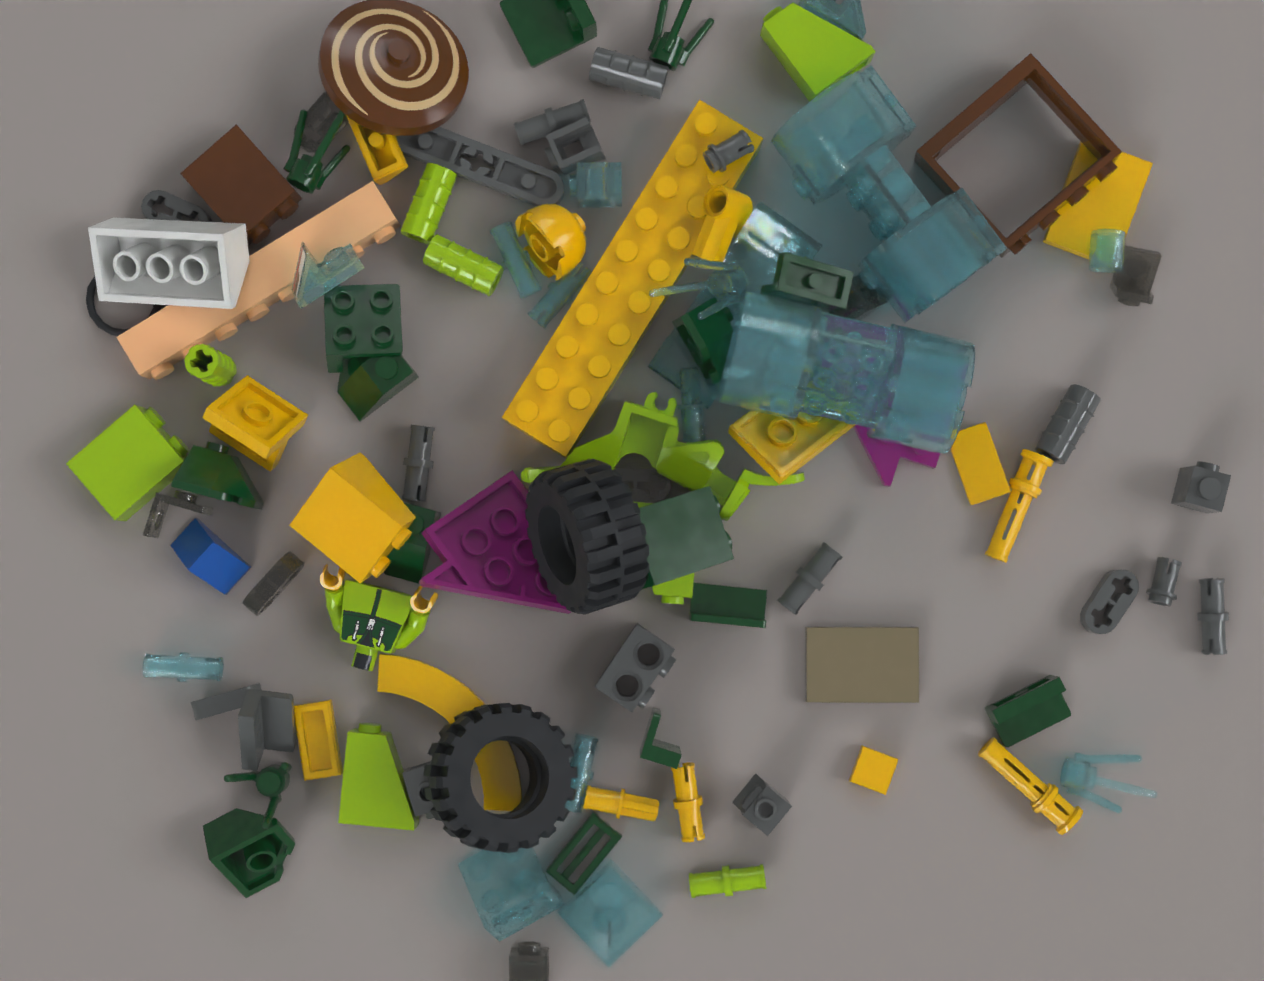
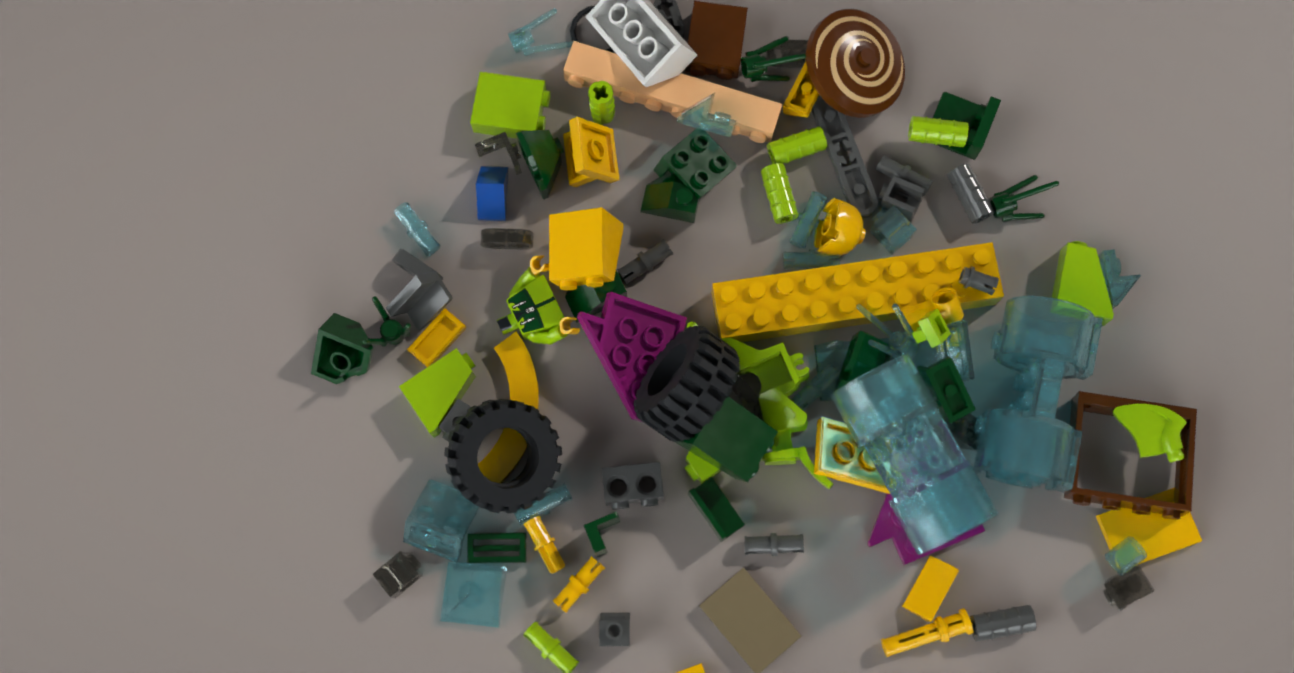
camera: 50 degrees right, 10 degrees down
(65, 385) = (522, 37): none -> clear light blue plant
(538, 48) = (938, 131): none -> lime axle
(739, 243) = (932, 328): none -> lime tile
(1015, 114) = (1153, 429): none -> lime arm

